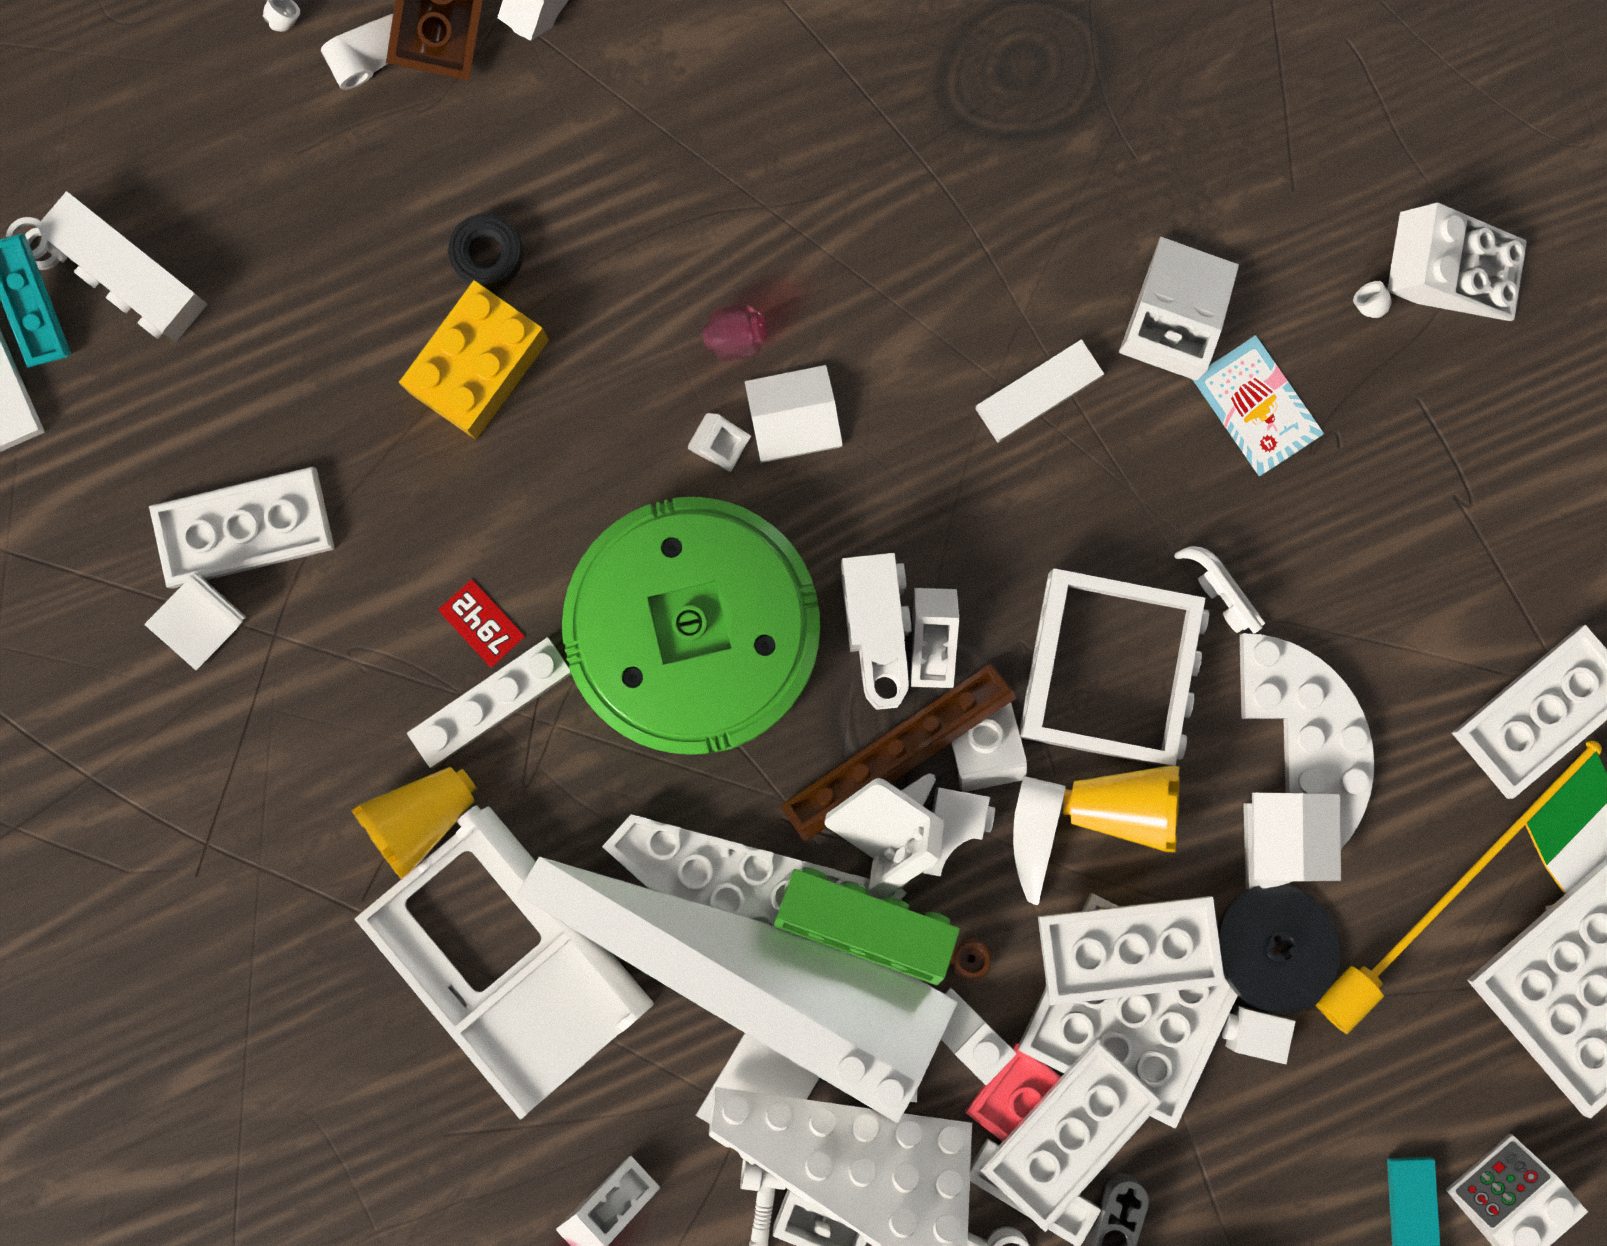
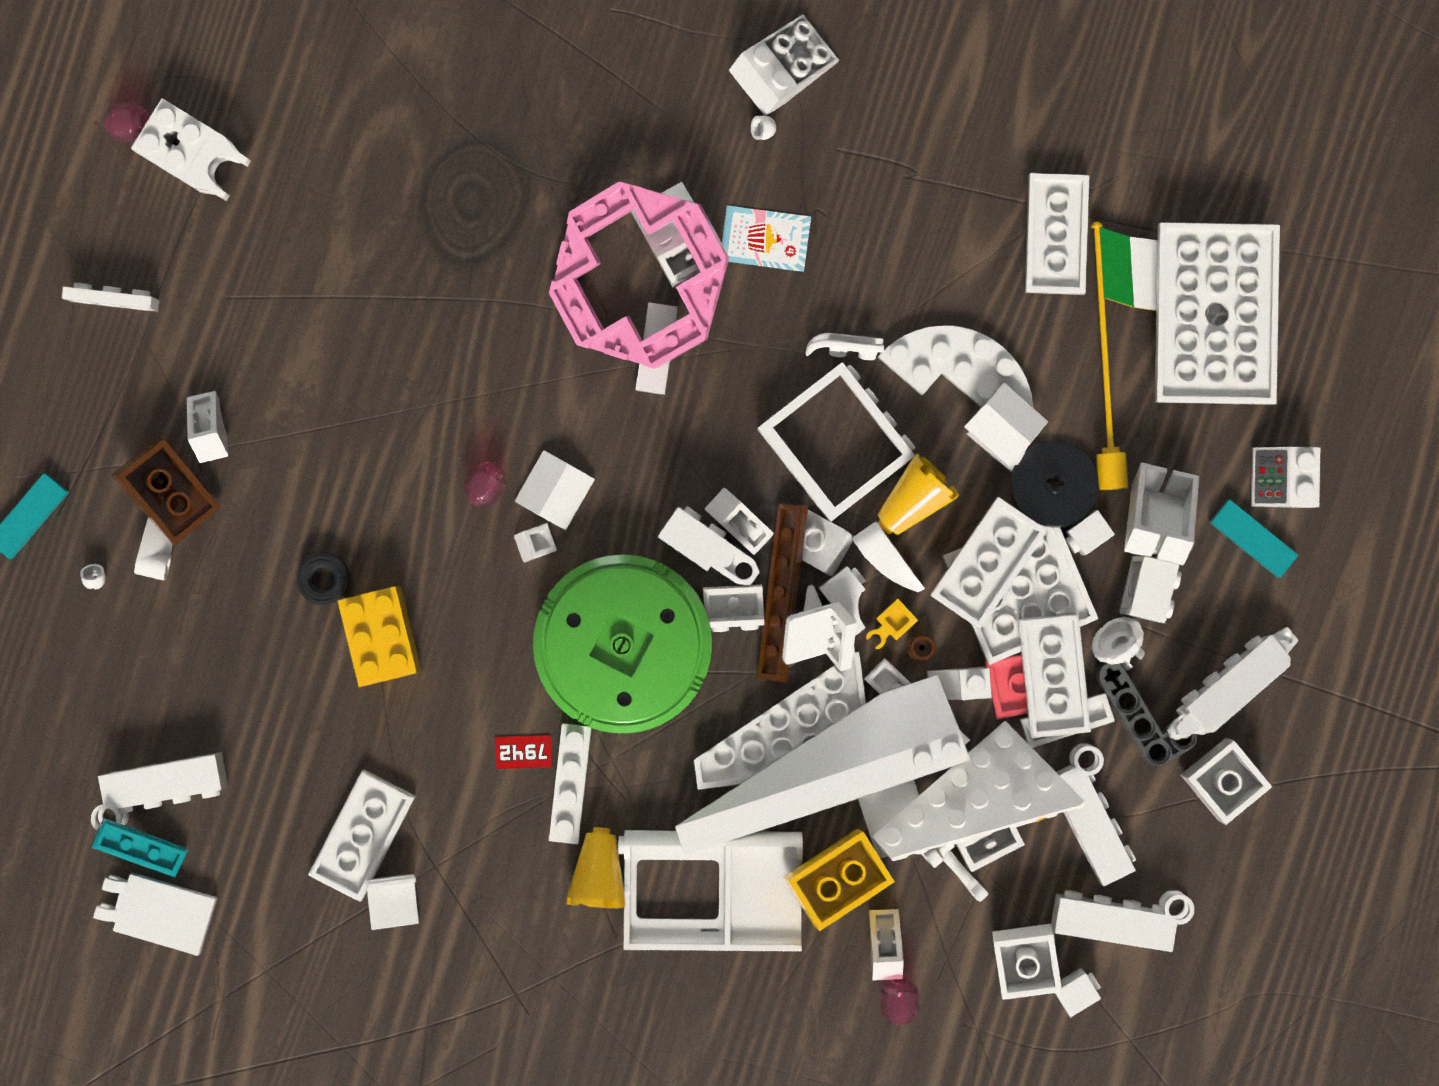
camera: 50 degrees left, 5 degrees up
(636, 1092) = (838, 879): none -> yellow brick
(836, 713) = (734, 607): none -> white bracket
(867, 926) = (857, 688): bright green brick -> none
(973, 903) = (894, 621): none -> yellow plate
(1142, 375) = (697, 293): none -> bright pink plate
(1171, 1175) = (1119, 642): none -> white hair
(1262, 1158) = (1150, 589): none -> white brick
(1348, 1107) = (1164, 520): none -> white piece

